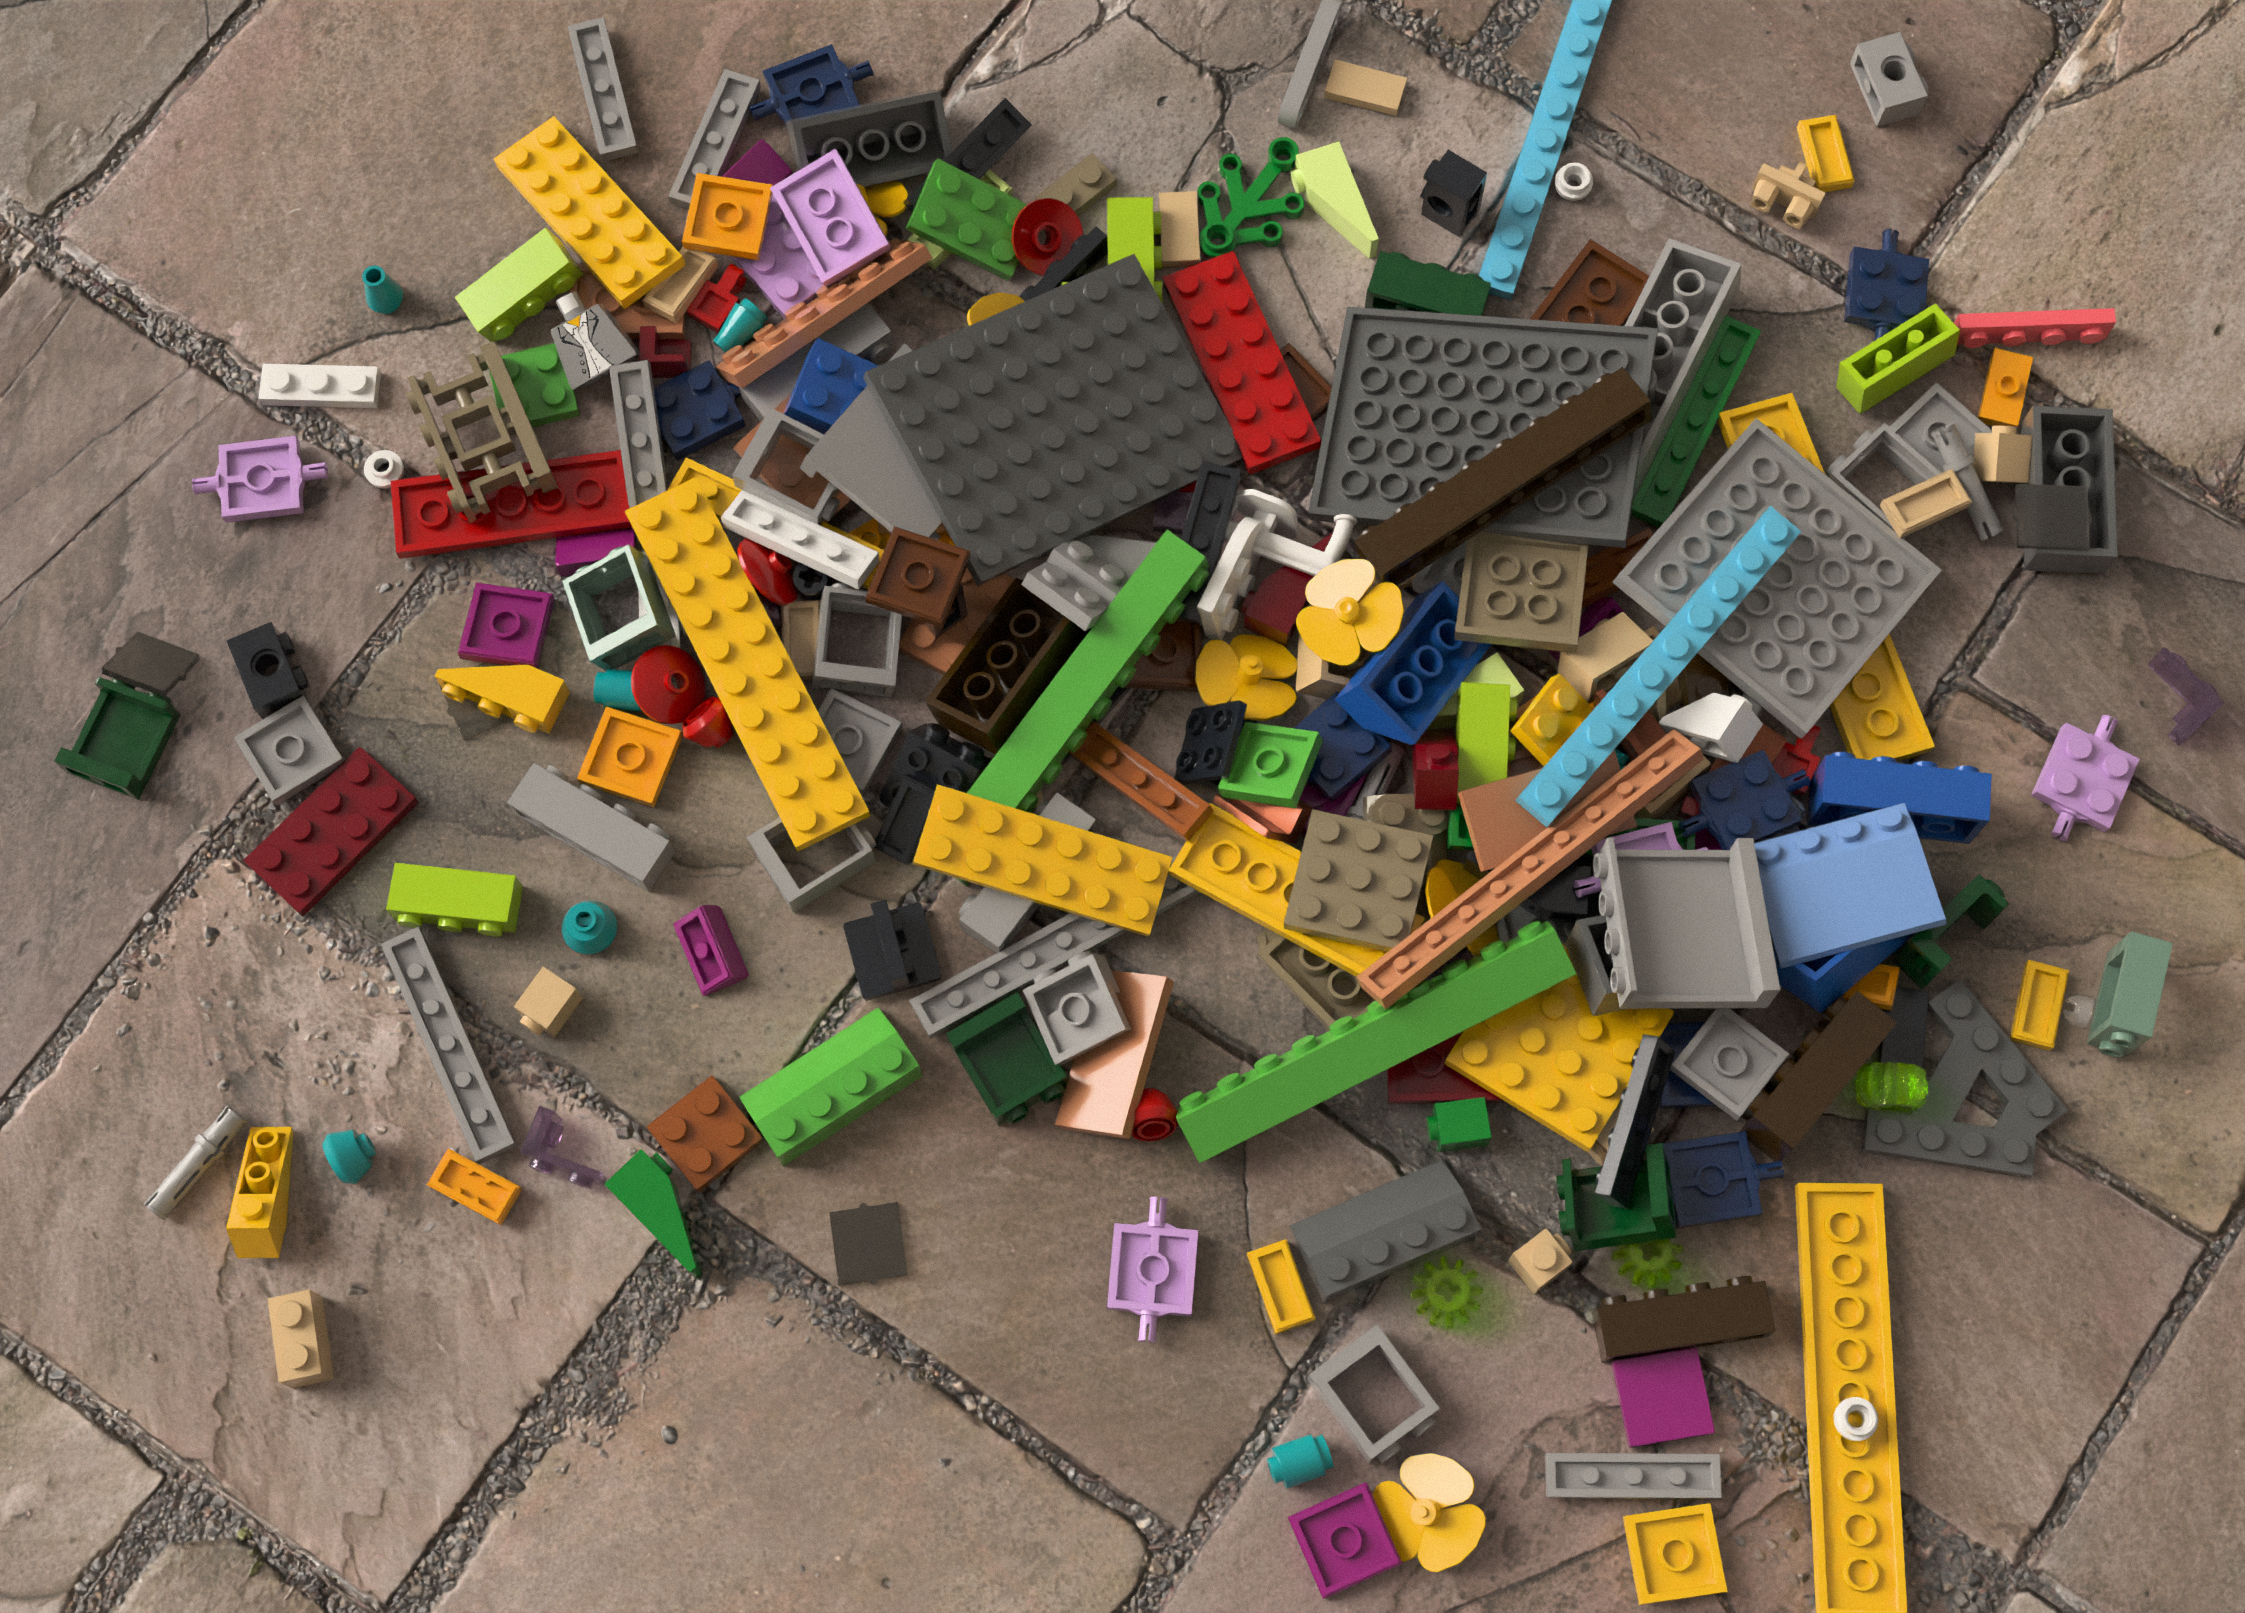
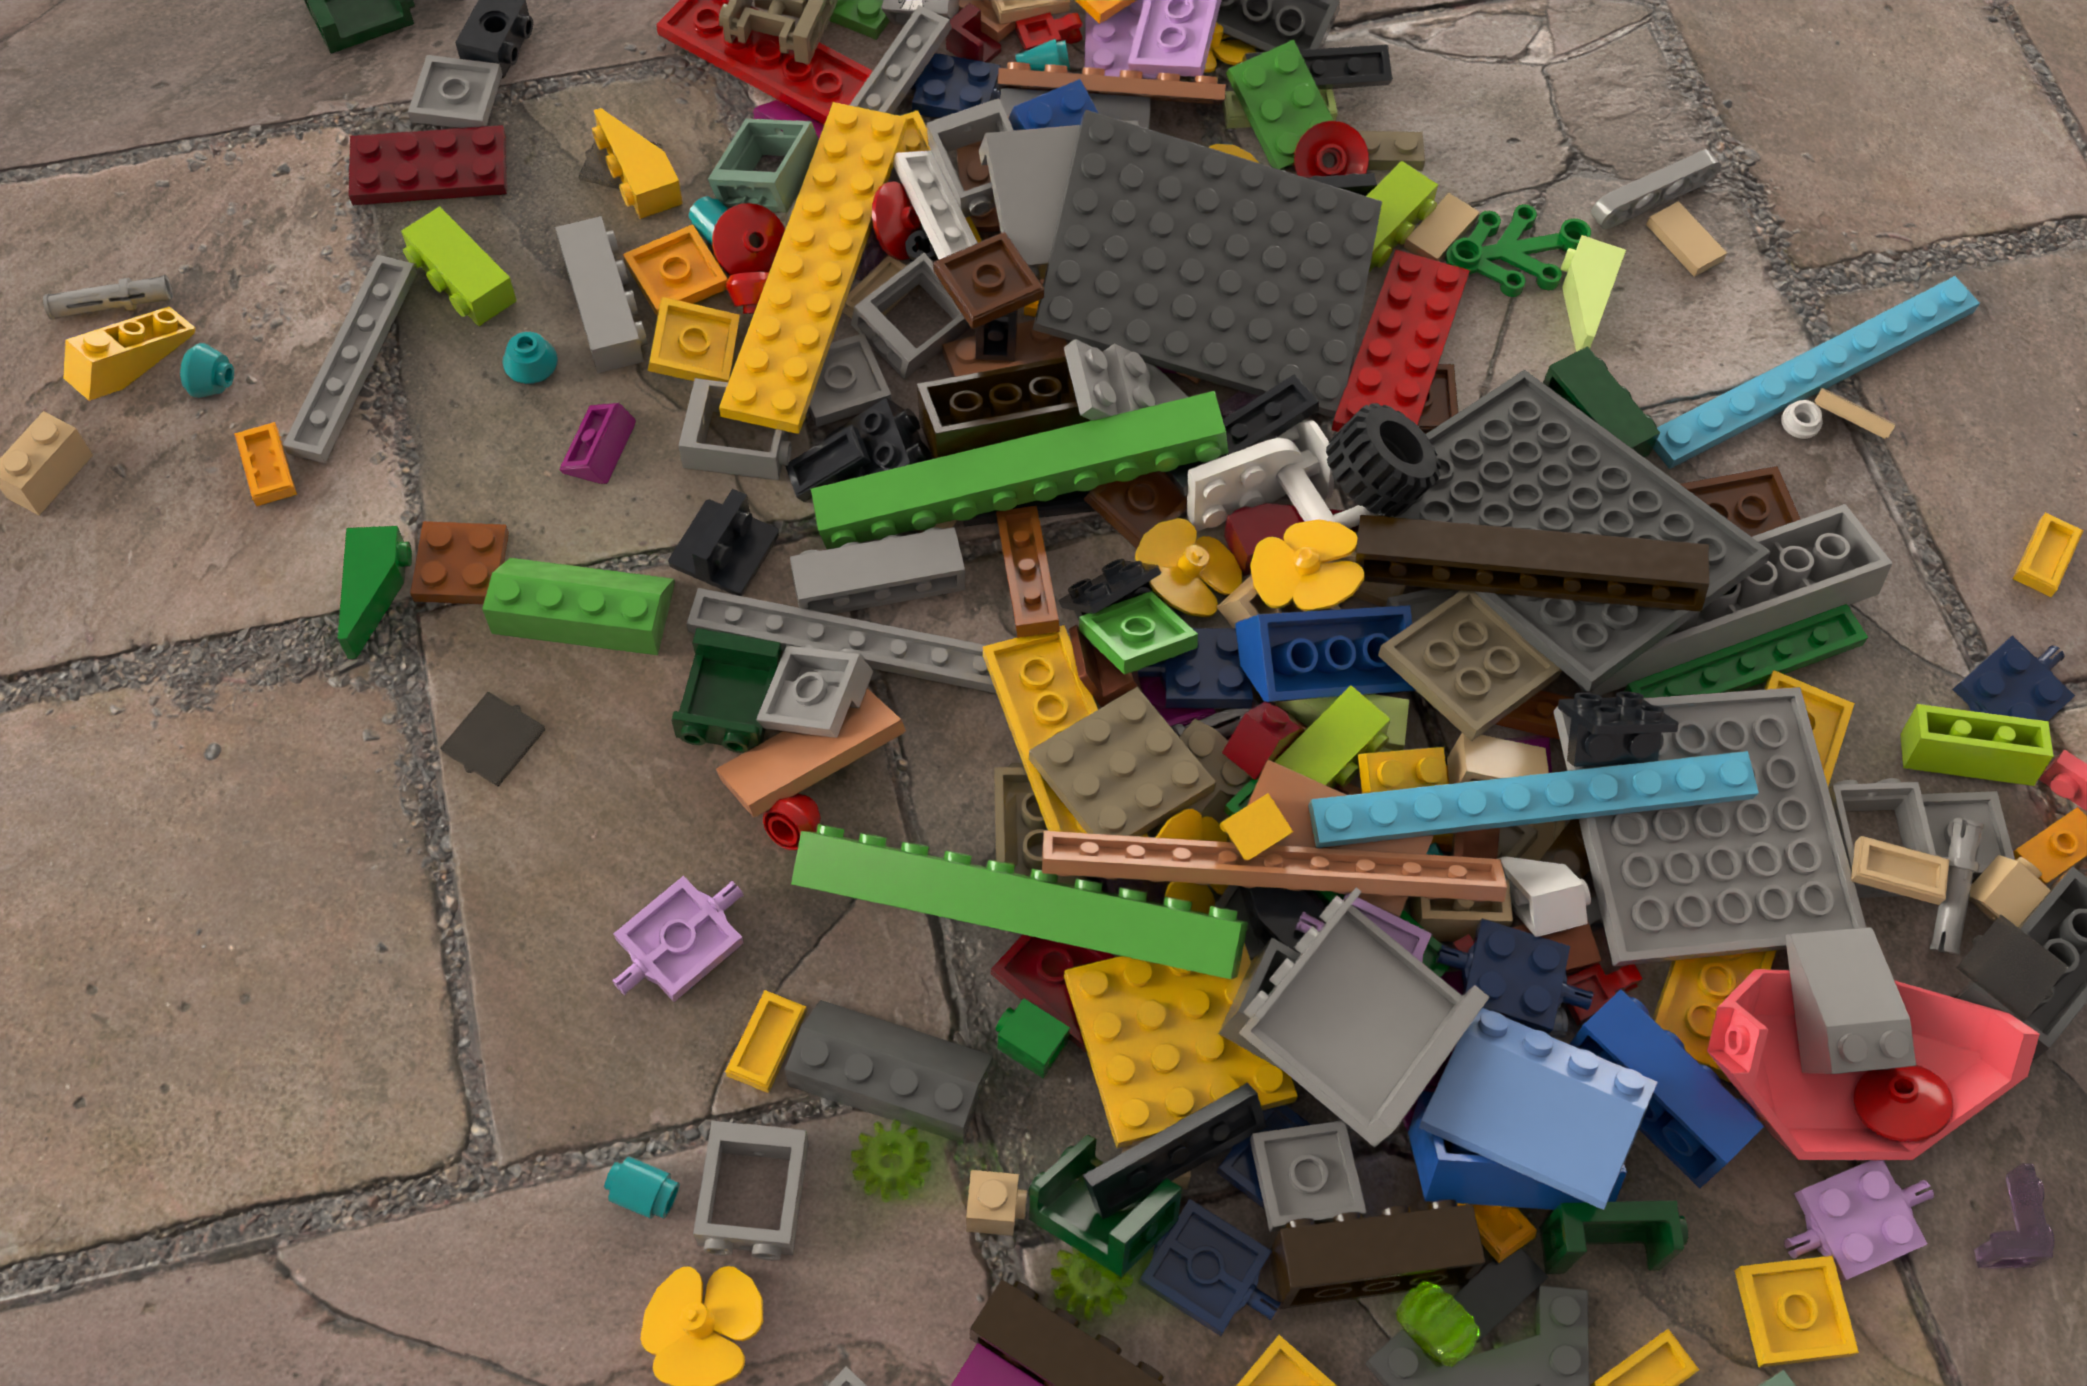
camera: 35 degrees right, 10 degrees down
(506, 625) = (683, 126): magenta tile -> none
(546, 1134) = (340, 469): clear purple bracket -> none
(547, 1003) = (444, 383): tan brick -> none
(708, 806) = (693, 341): none -> yellow plate
(1042, 860) = (892, 563): yellow plate -> none
(1332, 482) = (1383, 460): none -> black tyre
(1345, 1540) = (615, 1287): magenta tile -> none
(1452, 192) = (1688, 348): black brick -> none
(1499, 849) = (1256, 827): none -> yellow panel
(1607, 146) = (1854, 413): none -> tan tile
(1671, 564) = (1614, 729): none -> black bracket
(1788, 189) = (1990, 553): tan hips -> none
(1969, 635) = (1847, 1003): none -> light grey slope
(2010, 665) = (1813, 1114): none -> coral panel
(2056, 687) = (1899, 1115): none -> red dish
(2096, 877) = (1796, 1311): none -> yellow plate

